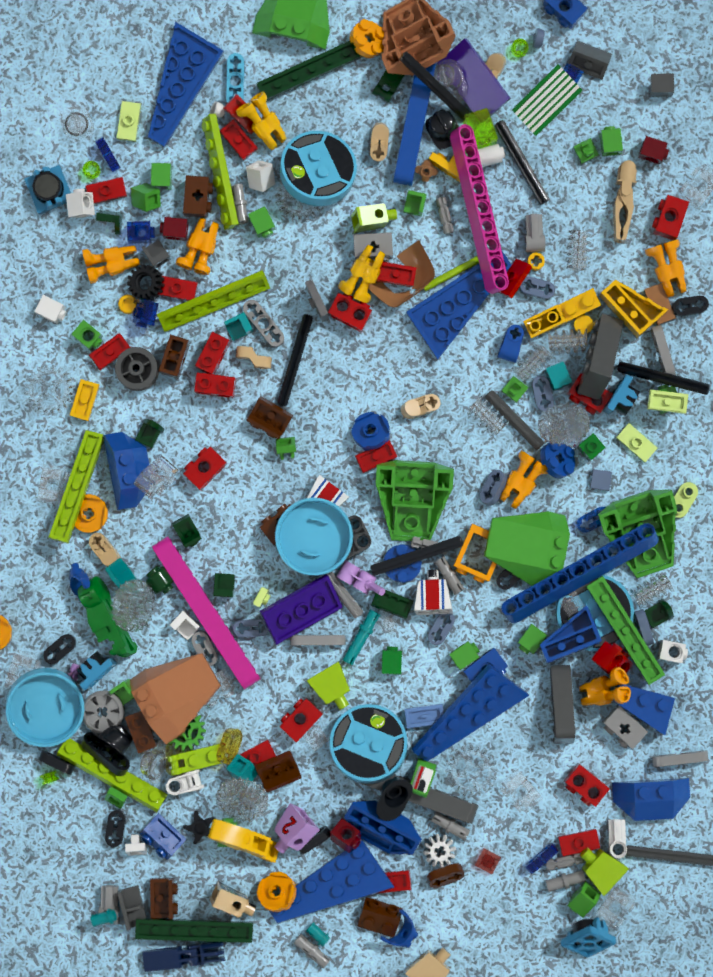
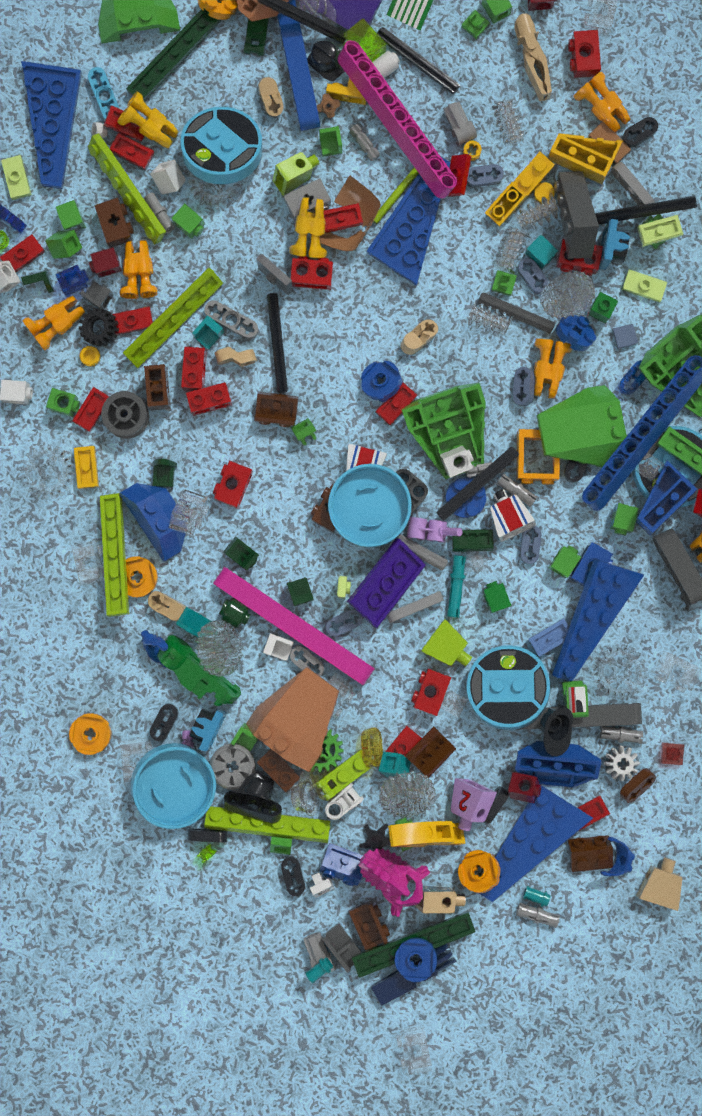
camera: 25 degrees left, 0 degrees up
(144, 313) = (110, 357): clear blue brick -> none
(180, 949) = (425, 968): none -> blue plate
(199, 862) = (391, 876): none -> dark pink piece
(400, 534) = (448, 461): none -> white brick
(511, 347) = (482, 242): blue piece -> none

